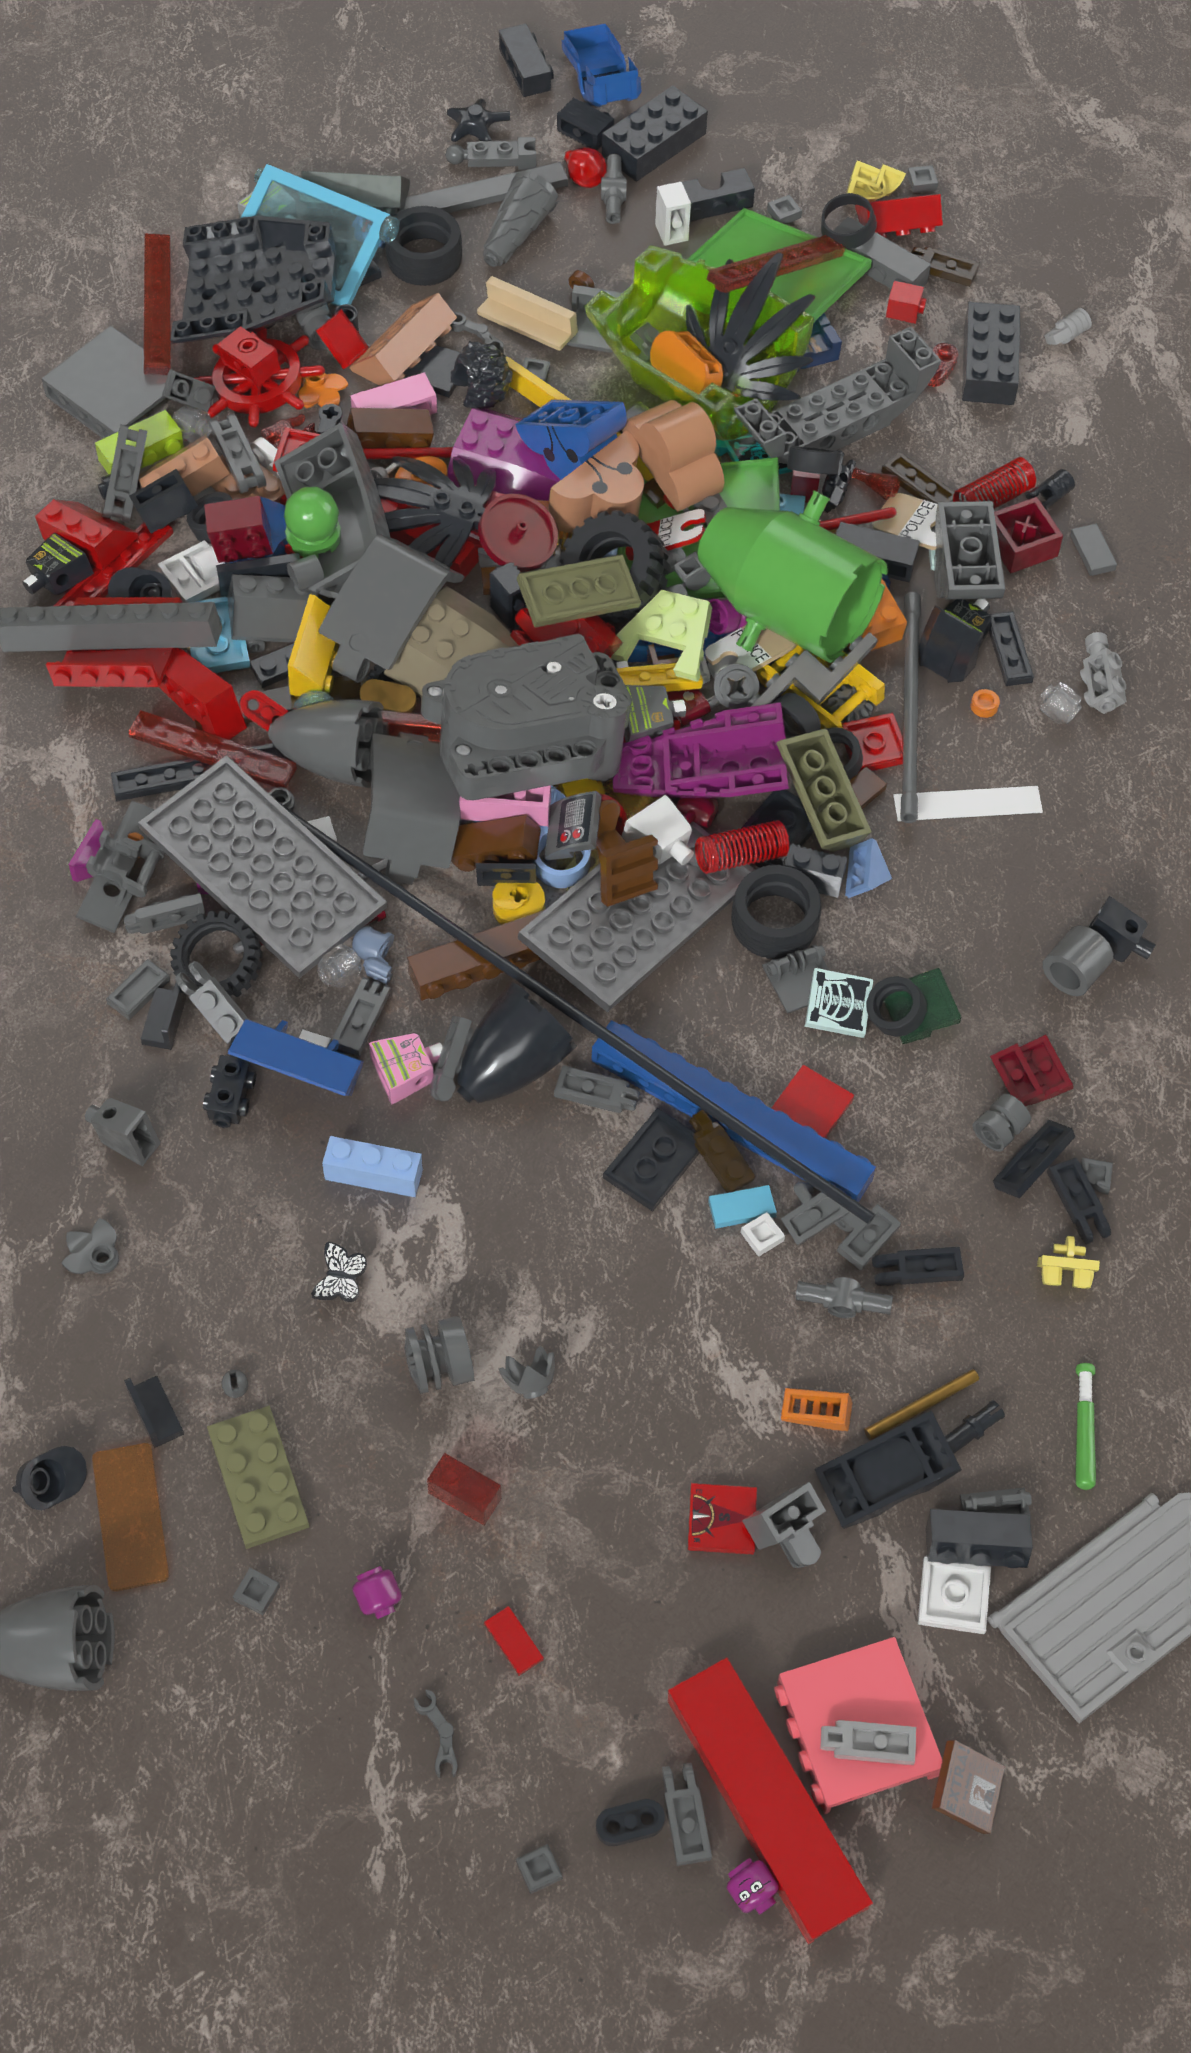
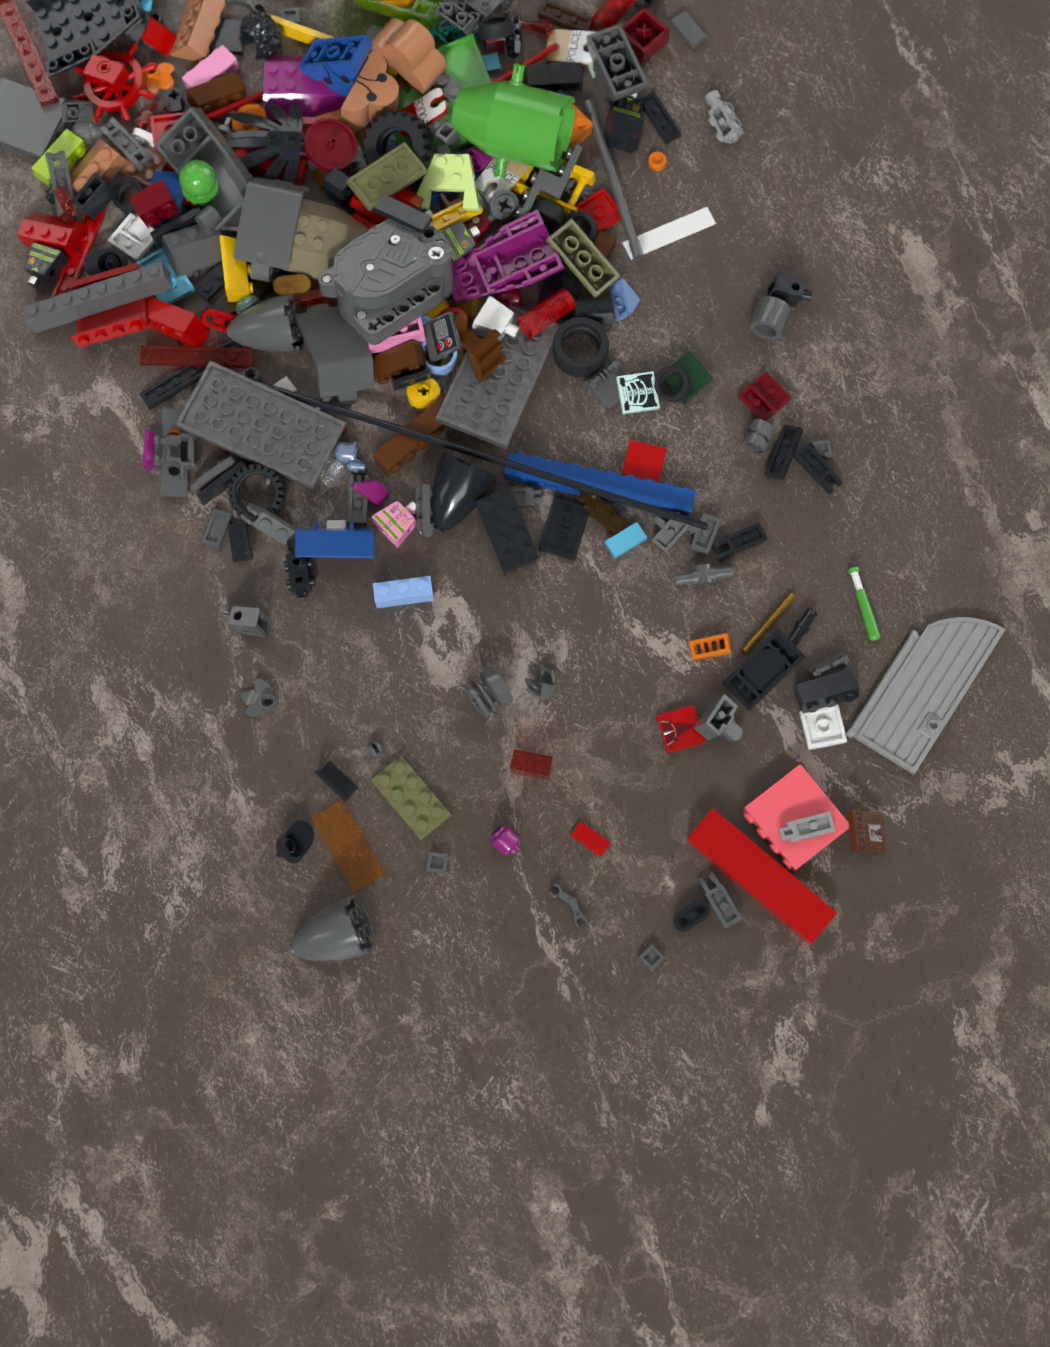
camera: 15 degrees left, 15 degrees up
(119, 499) = (66, 204): none -> clear red arm
(163, 930) = (218, 485): none -> black tile
(341, 1274) = (411, 664): black animal -> none
(386, 1008) = (372, 491): none -> magenta slope
(563, 1130) = (507, 531): none -> black brick
(579, 638) = (403, 214): none -> black tile
(752, 1886) = (770, 926): magenta head -> none
(762, 1234) = (644, 553): white plate -> none
(1060, 703) = (703, 146): clear head -> none
(1082, 1269) = (816, 515): light yellow hips -> none

